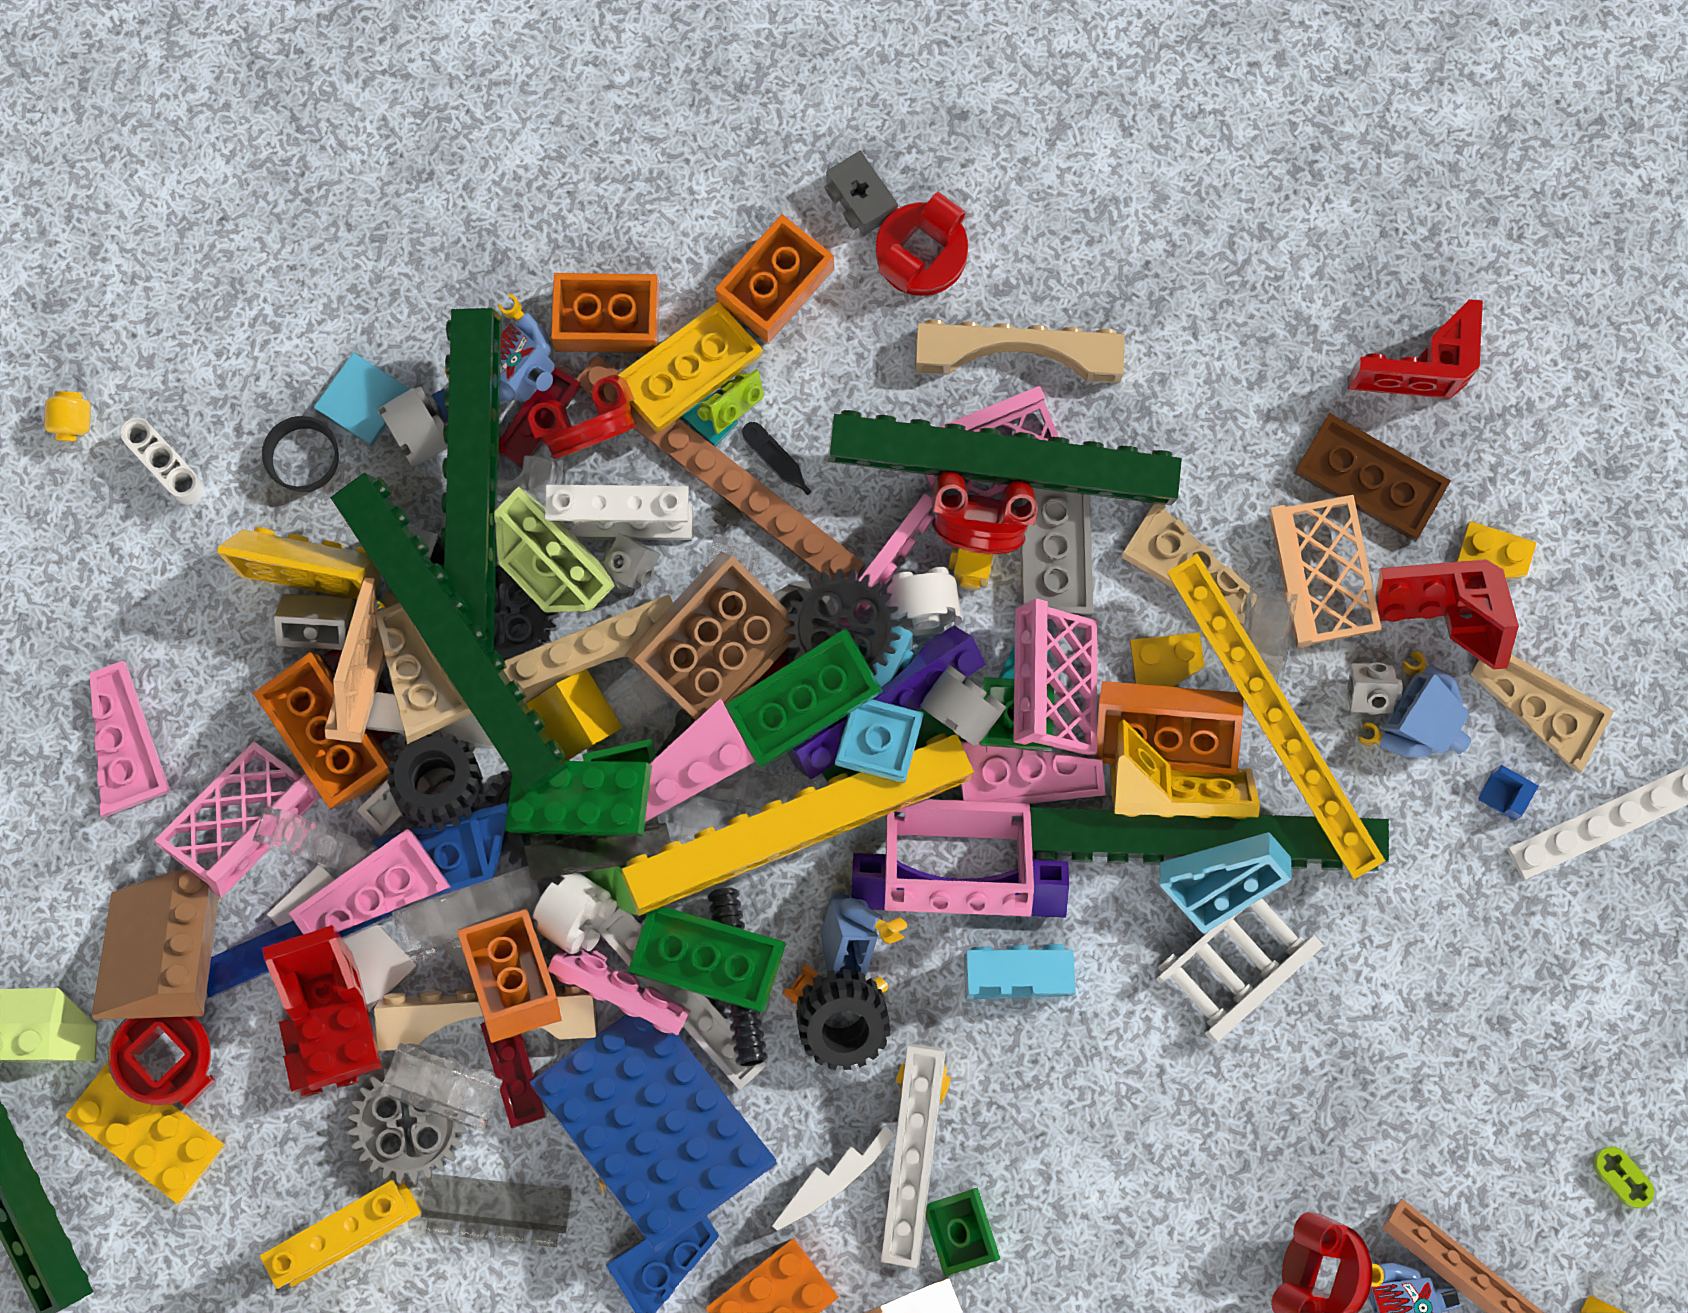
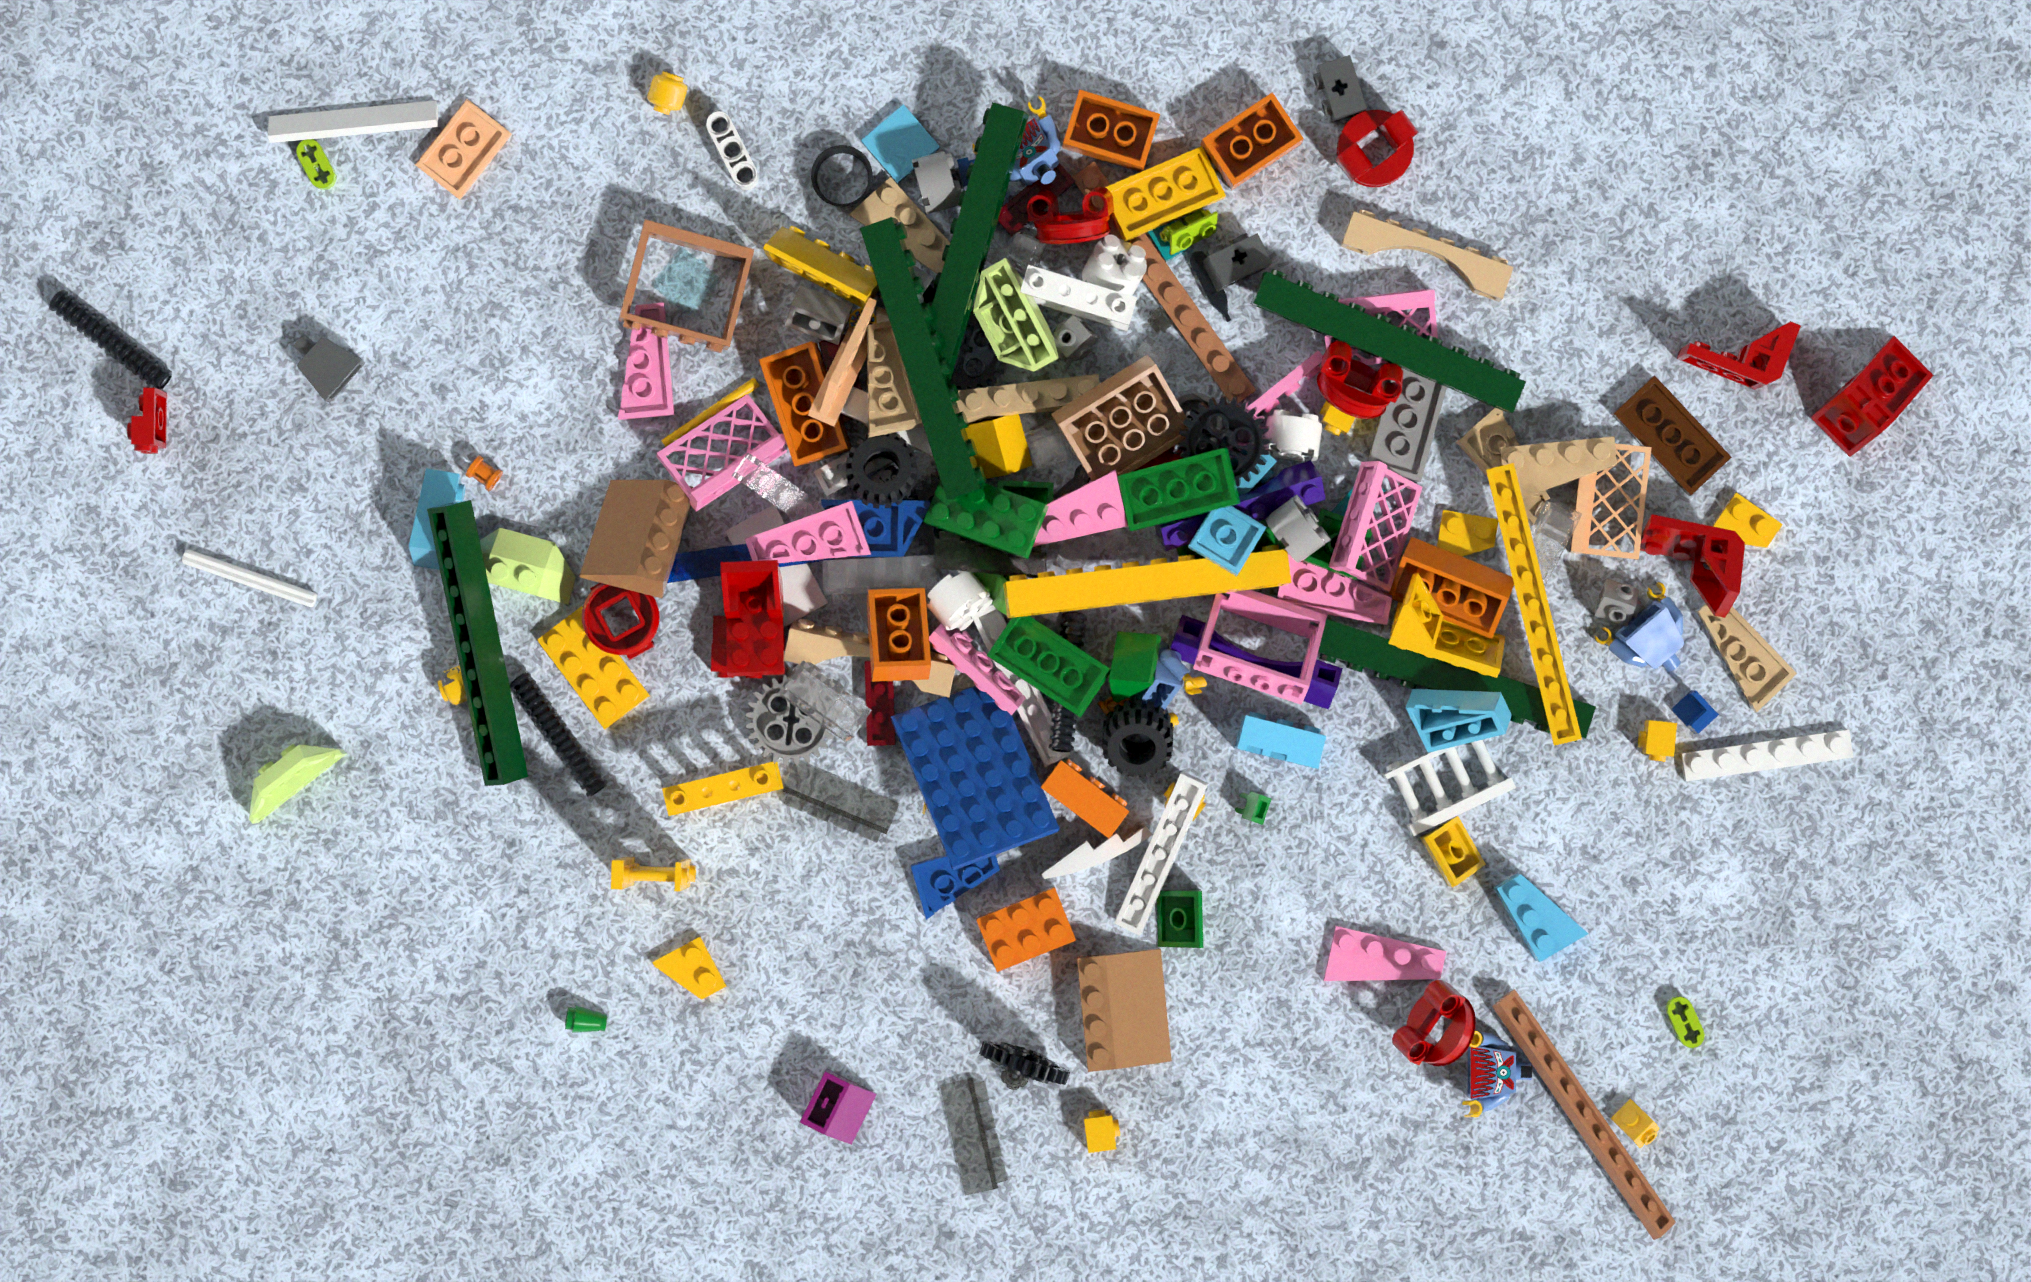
camera: 15 degrees right, 10 degrees up
(119, 1227) = (558, 734): none -> black piece
(140, 577) = (696, 242): none -> nougat window
(147, 631) = (686, 282): none -> clear light blue piece
(250, 735) = (731, 398): none -> yellow bar
(410, 491) = (922, 235): none -> tan wing
(654, 459) = (1115, 265): none -> white brick
(797, 420) = (1252, 259): none -> dark grey brick
(799, 1112) = (1085, 797): none -> orange brick
(810, 928) = (1133, 663): none -> green slope
(1013, 1064) = (1255, 807): none -> green tile
(1215, 1210) = (1374, 957): none -> bright pink wing
(1252, 541) = (1557, 463): none -> tan wing
(1271, 1049) = (1453, 851): none -> yellow slope
(1401, 1100) = (1537, 918): none -> medium azure wedge
(1475, 838) = (1657, 739): none -> yellow brick
(1590, 368) = (1872, 397): none -> red bracket

